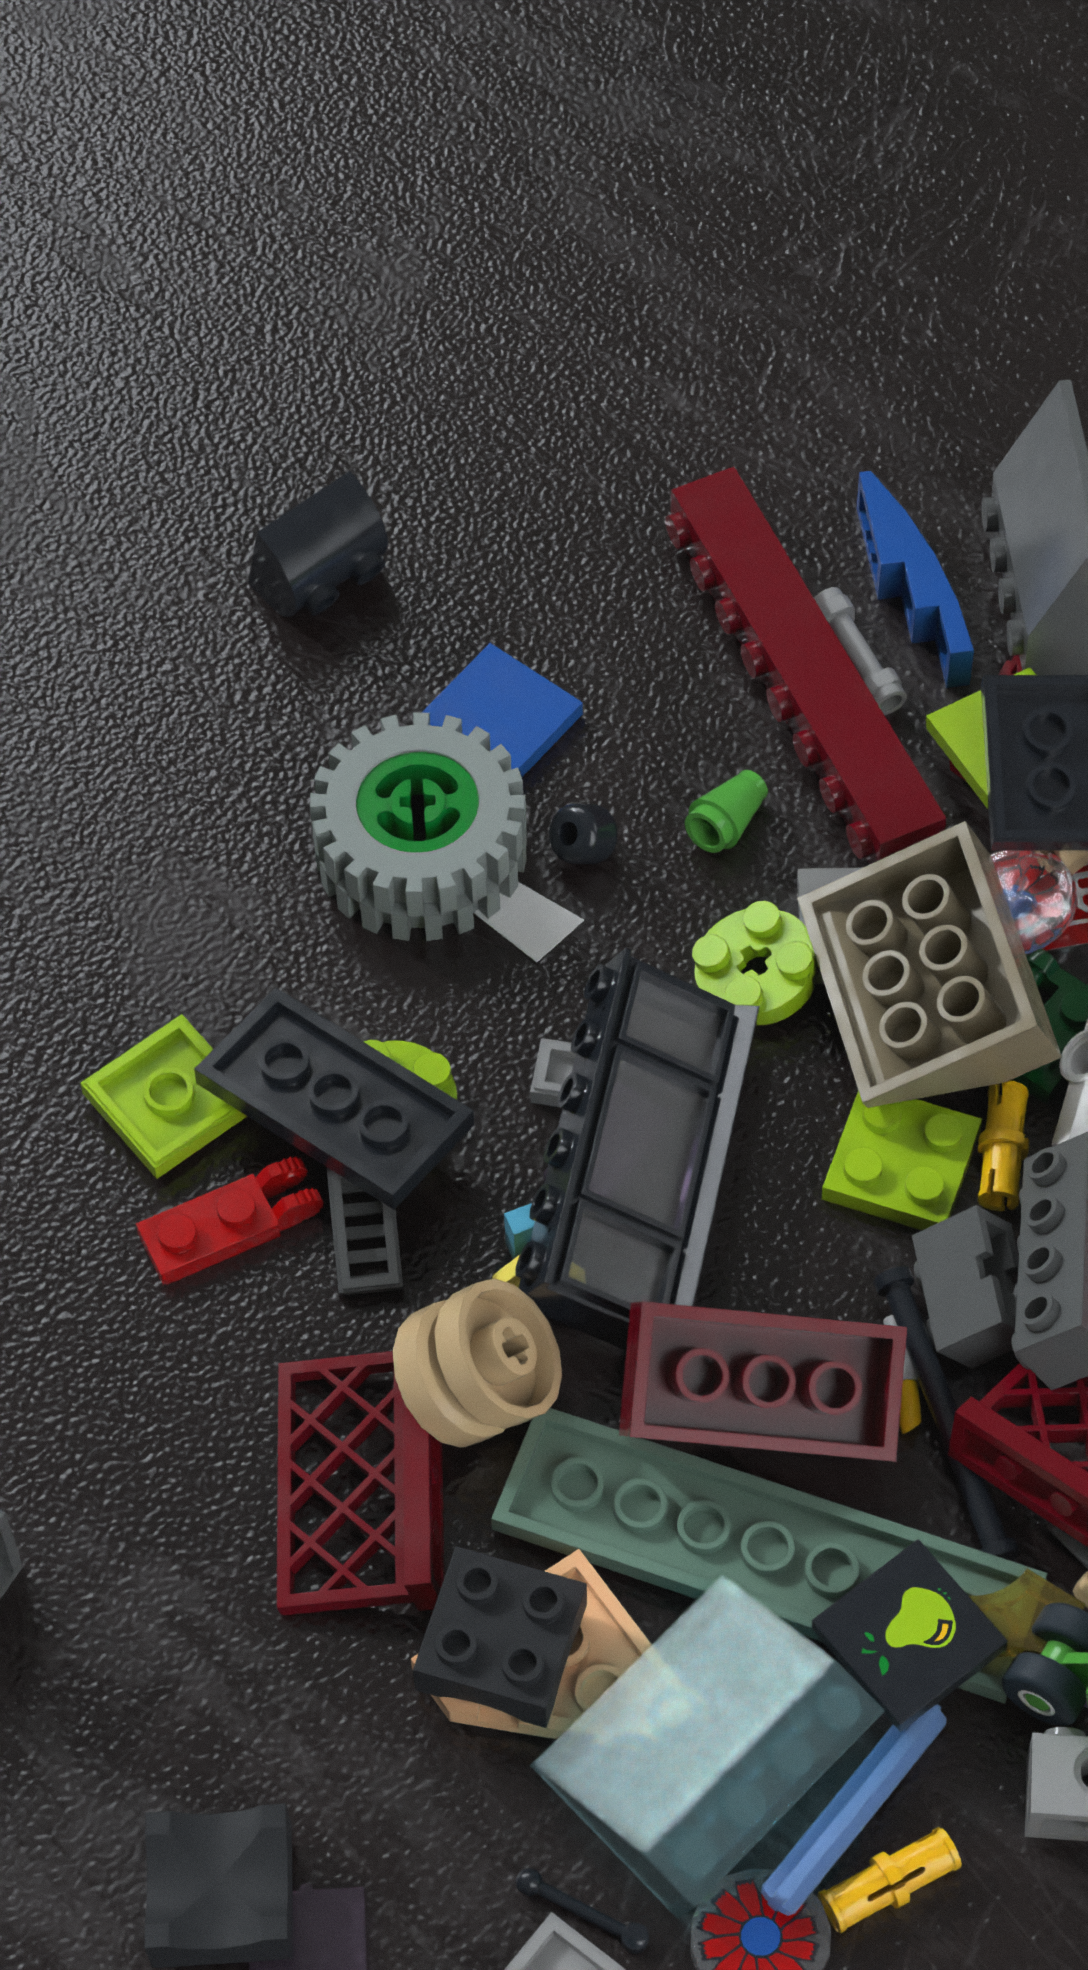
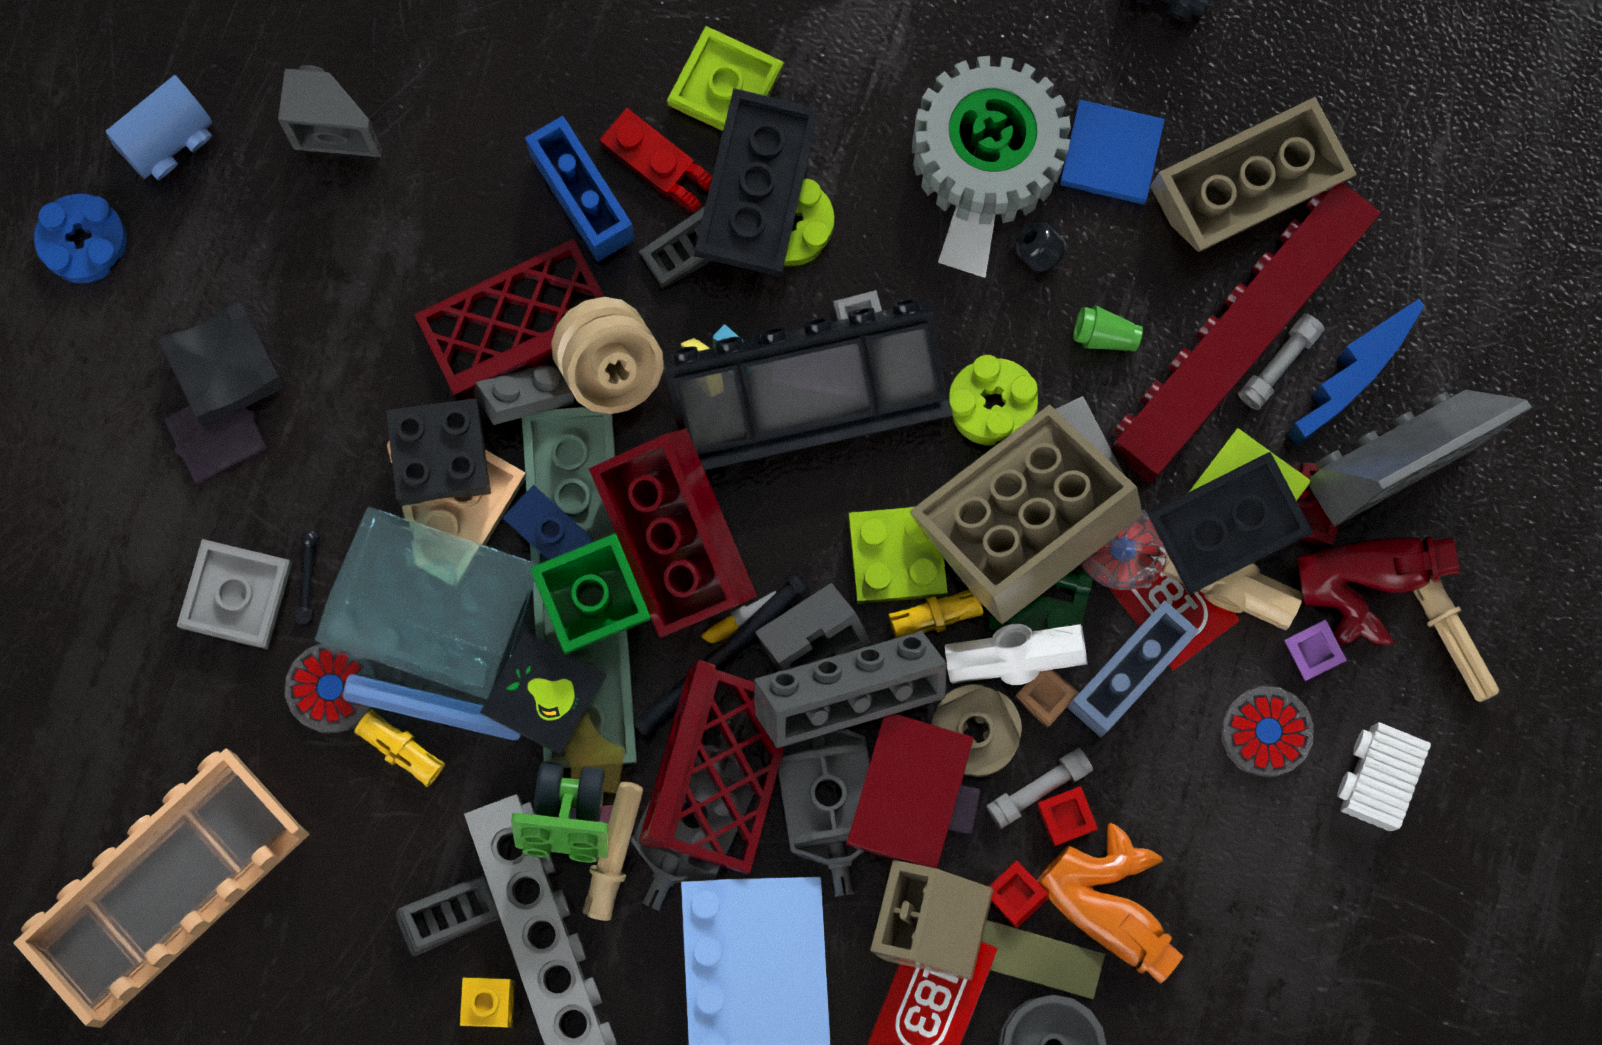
camera: 60 degrees right, 20 degrees up
(221, 1314) = (580, 188): none -> blue brick
(469, 1498) = (523, 393): none -> dark grey plate
(621, 575) = (1252, 176): none -> dark tan slope
(682, 1543) = (545, 525): none -> dark blue plate
(806, 1511) = (590, 593): none -> green brick

